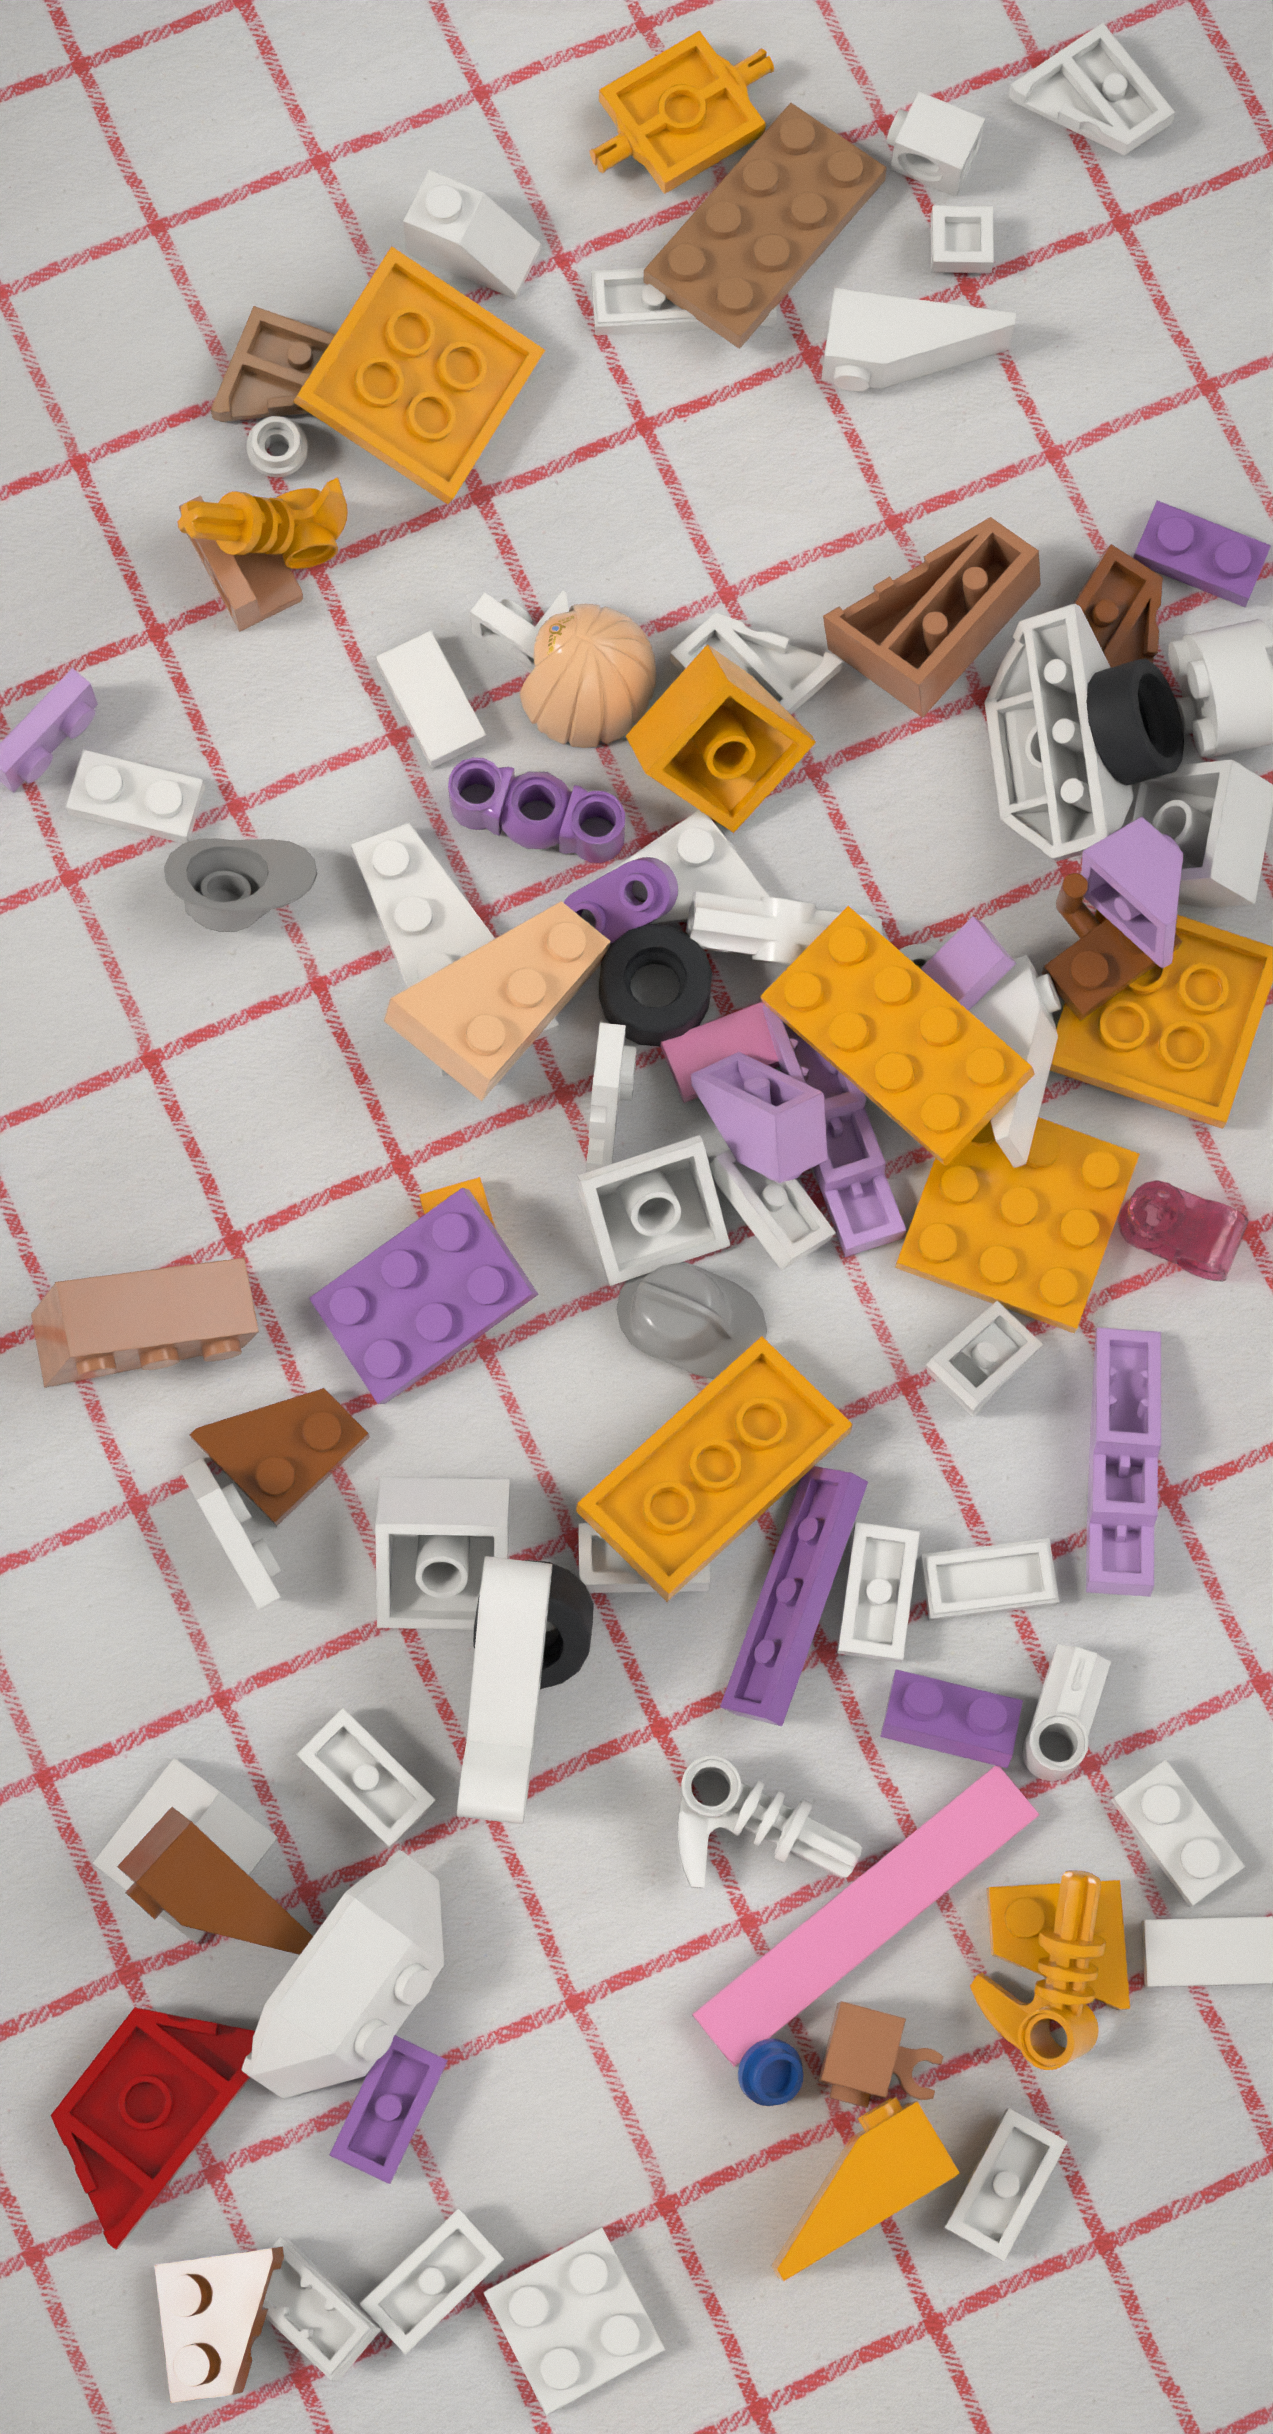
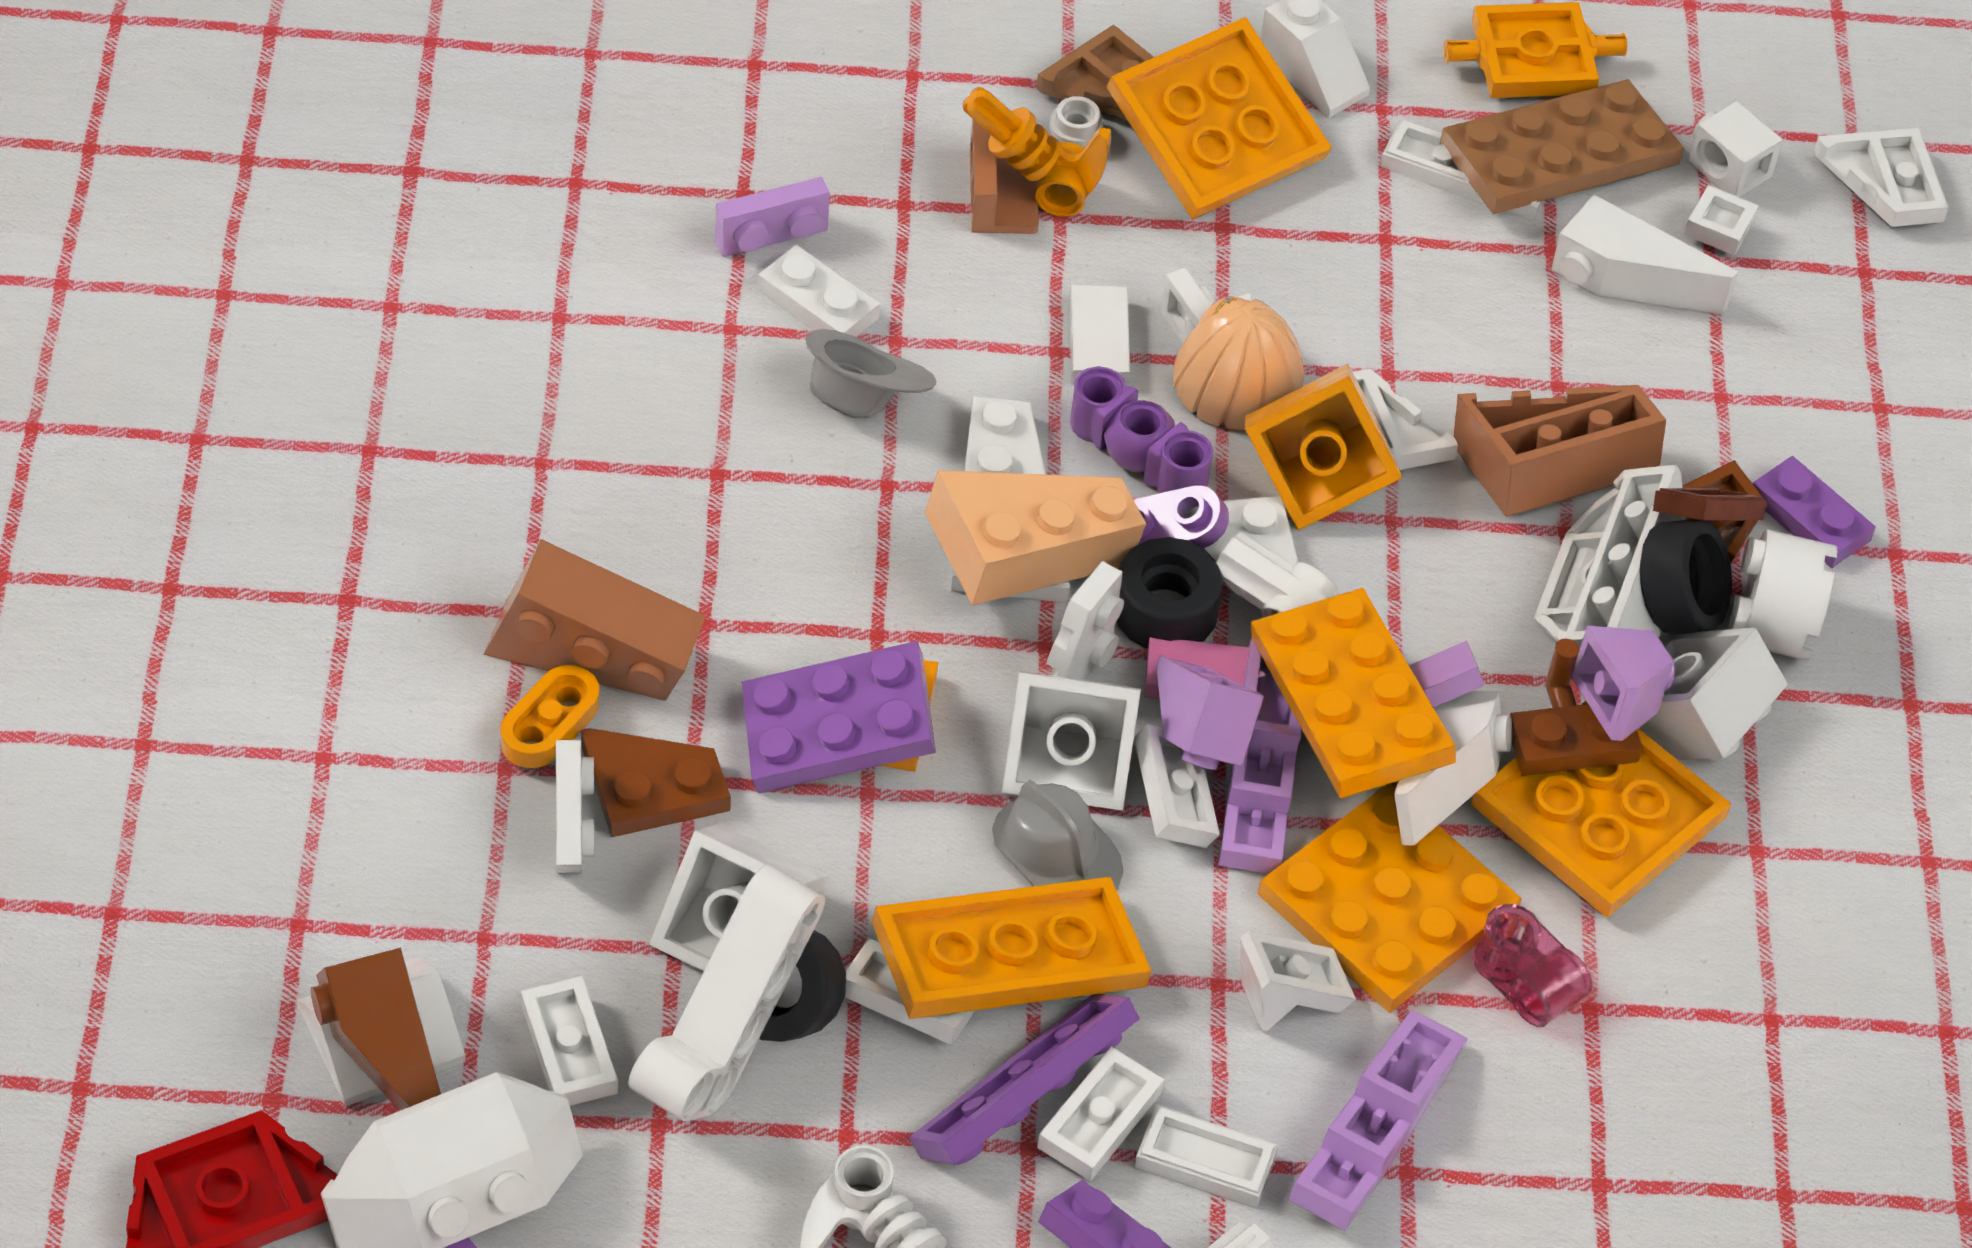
camera: 25 degrees right, 25 degrees down
(152, 1436) = (545, 720): none -> light orange plate
(1125, 634) = (1709, 504): none -> copper tile

